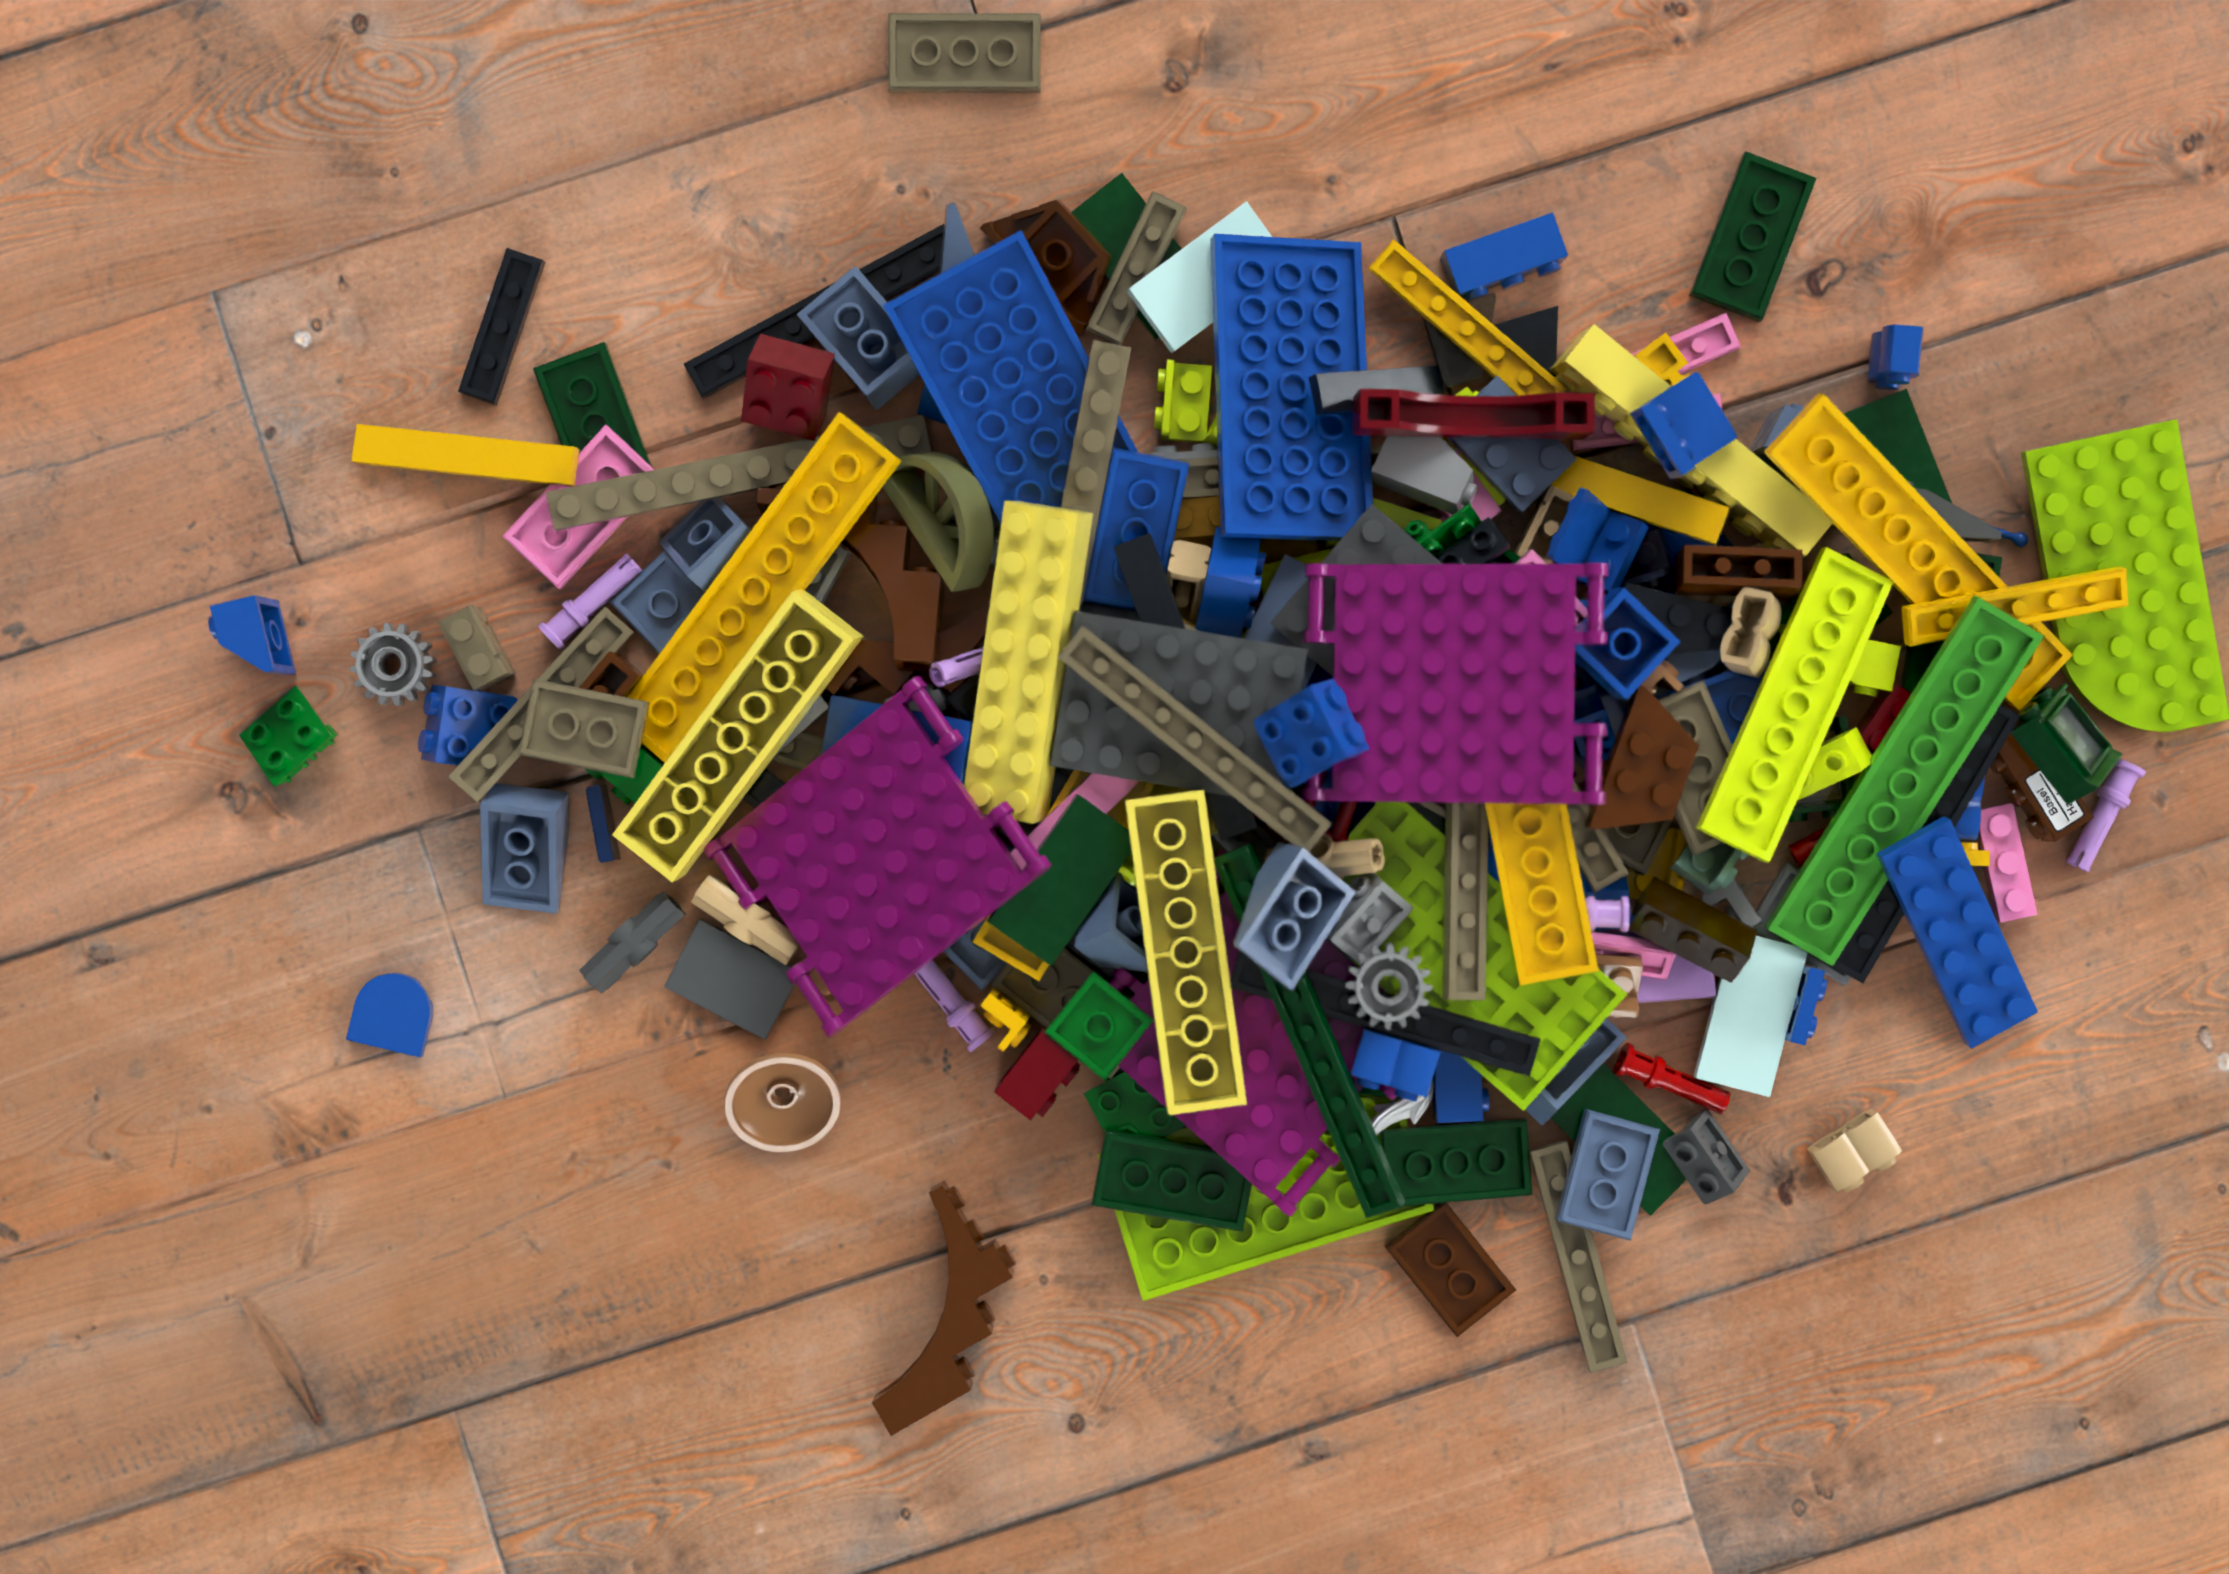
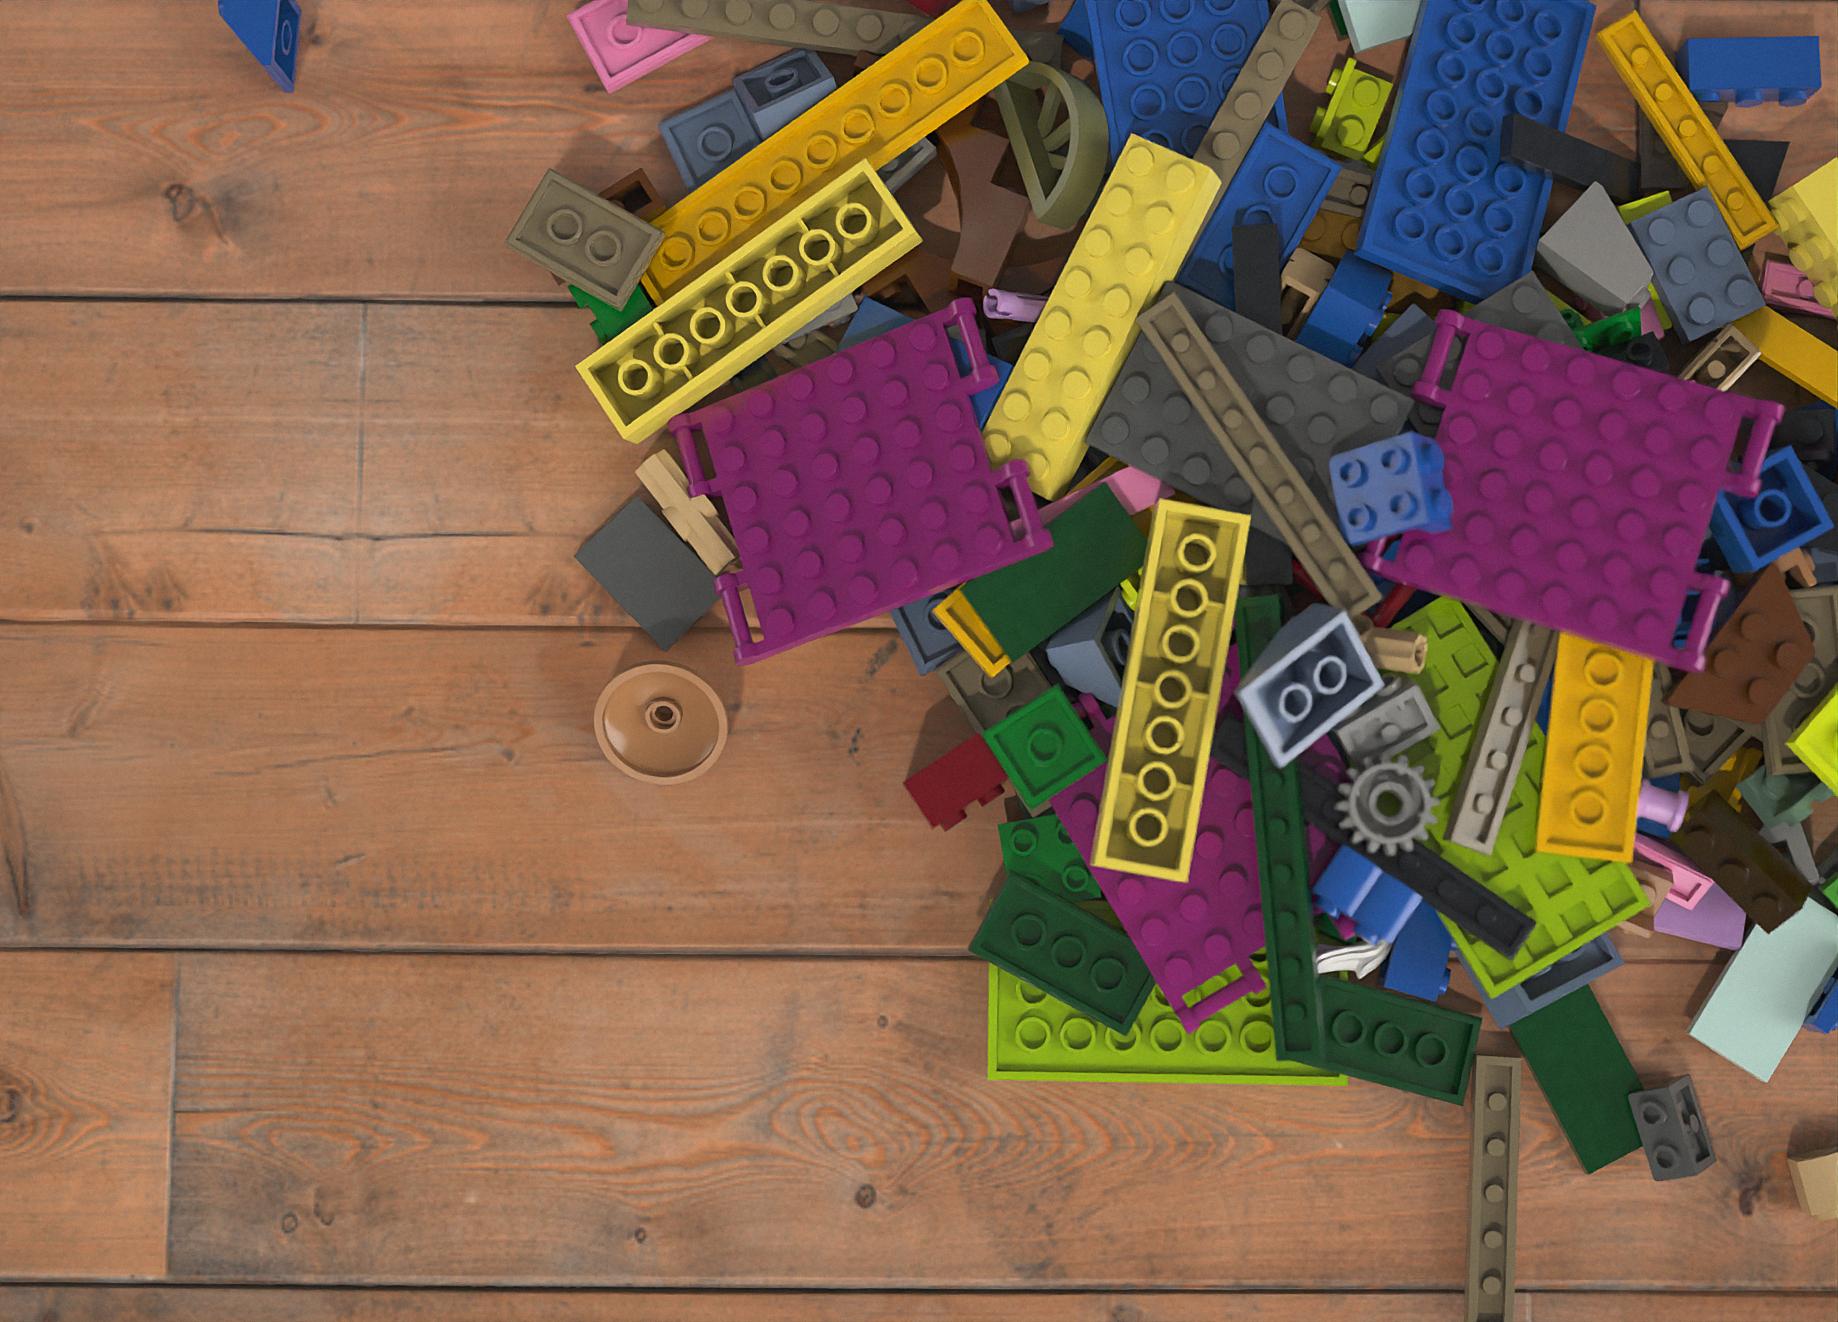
camera: 20 degrees right, 5 degrees down
(287, 737) = (259, 154): green hinge -> none
(372, 661) = (385, 95): light grey gear -> none
(392, 1014) = (266, 489): blue tile -> none
(458, 722) = (458, 206): blue bracket -> none
(476, 648) = (497, 124): dark tan brick -> none
(501, 745) = (484, 234): dark tan plate -> none
(523, 847) = (472, 354): sand blue slope -> none
(577, 612) = (620, 123): lavender pin -> none
(602, 823) = (568, 356): dark blue tile -> none
(632, 942) = (555, 495): dark grey piece -> none
(938, 1372) = (808, 983): reddish brown arch -> none
(959, 1012) = (889, 691): lavender pin -> none
(1003, 1012) = (938, 703): yellow bracket -> none
(1434, 415) = (1739, 237): dark red arch -> none
(1450, 1268) = (1343, 1159): reddish brown tile -> none
(1597, 536) = (1762, 376): blue bracket -> none
(1607, 1174) = (1556, 1109): sand blue tile -> none
(1656, 1073) = (1643, 1014): red pin -> none

